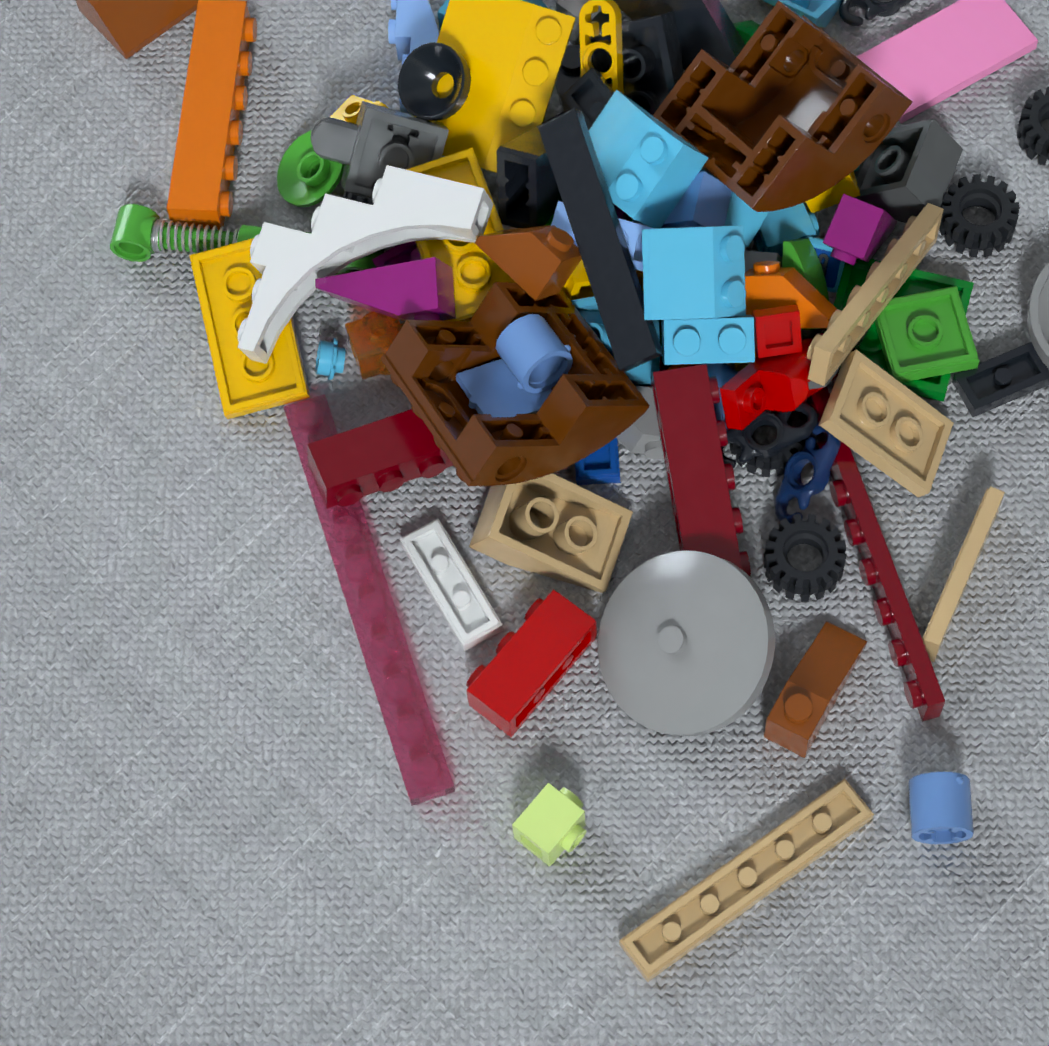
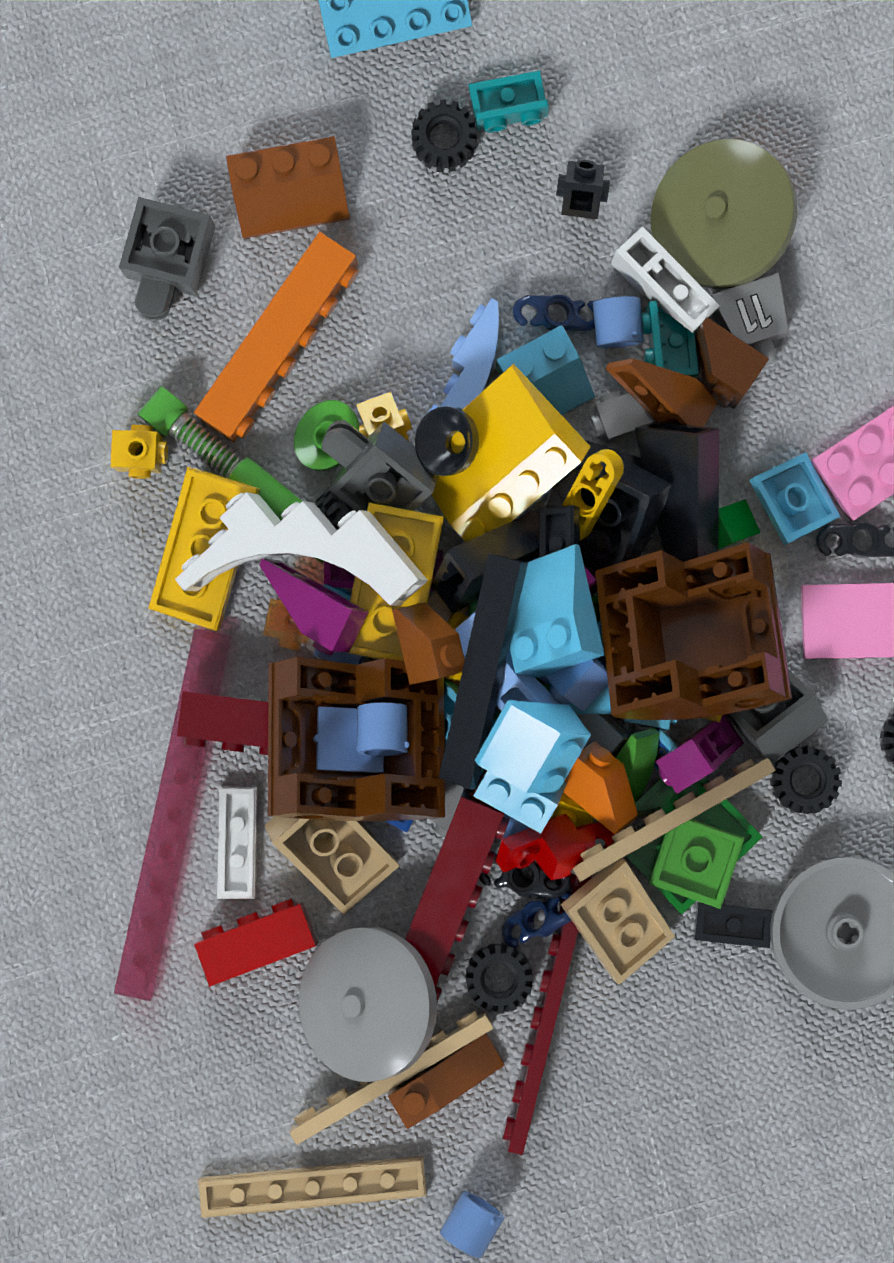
camera: 30 degrees right, 20 degrees up
(57, 95) = (170, 254): none -> dark grey brick
(131, 275) = (127, 445): none -> yellow brick
(329, 358) = (250, 607): medium azure plate -> none
(551, 824) = (200, 1072): yellowish green brick -> none
(746, 730) = (343, 1102): none -> tan plate
(777, 331) = (574, 815): red plate -> none
(962, 571) = (601, 1059): tan tile -> none

